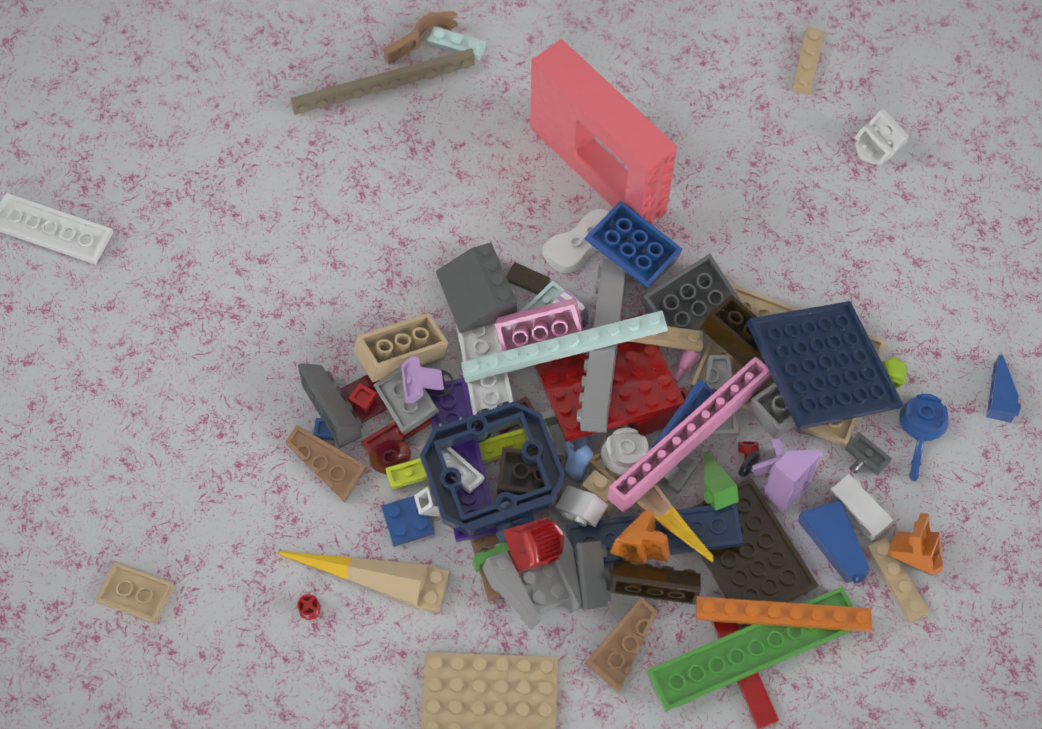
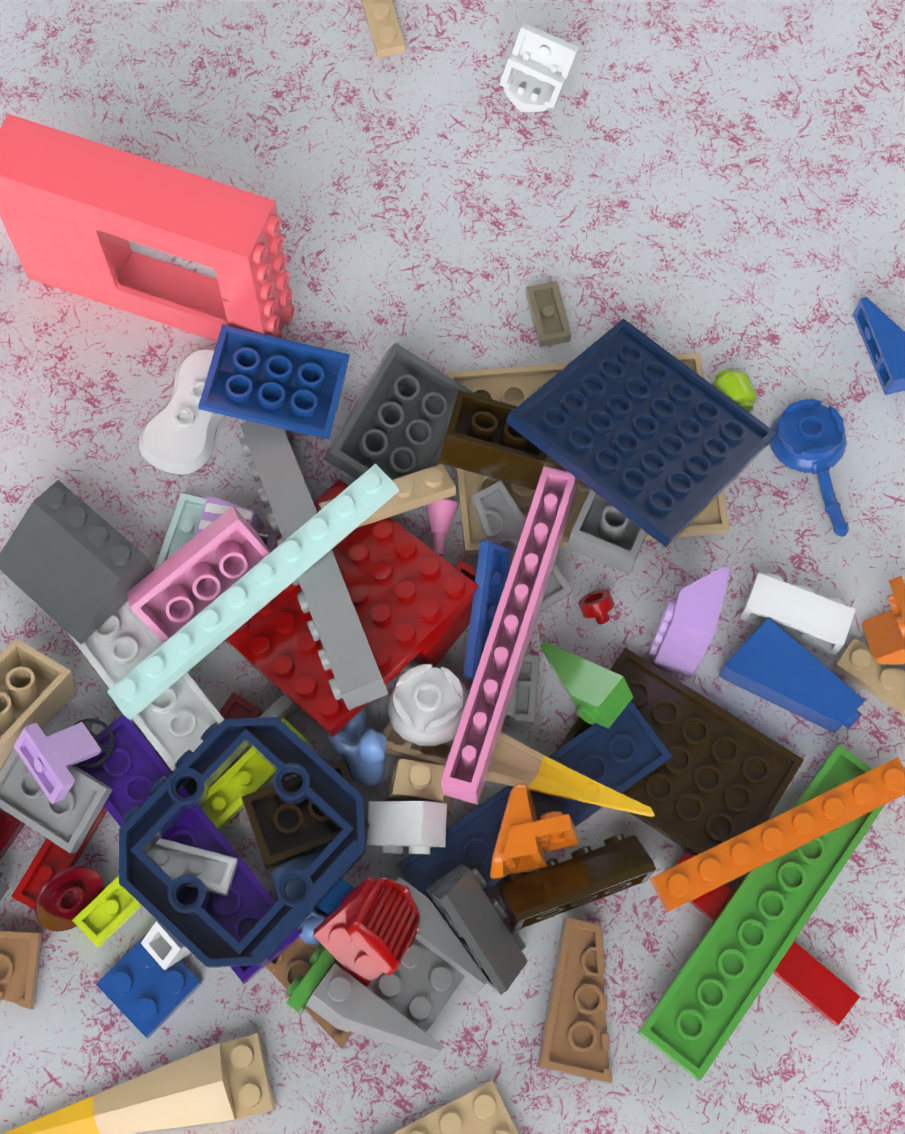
camera: 30 degrees left, 5 degrees up
(527, 278) = (141, 507): dark brown tile -> none
(759, 468) = (653, 605): piece -> none
(810, 279) = (548, 314): none -> dark tan plate
(867, 455) = (763, 530): dark grey plate -> none

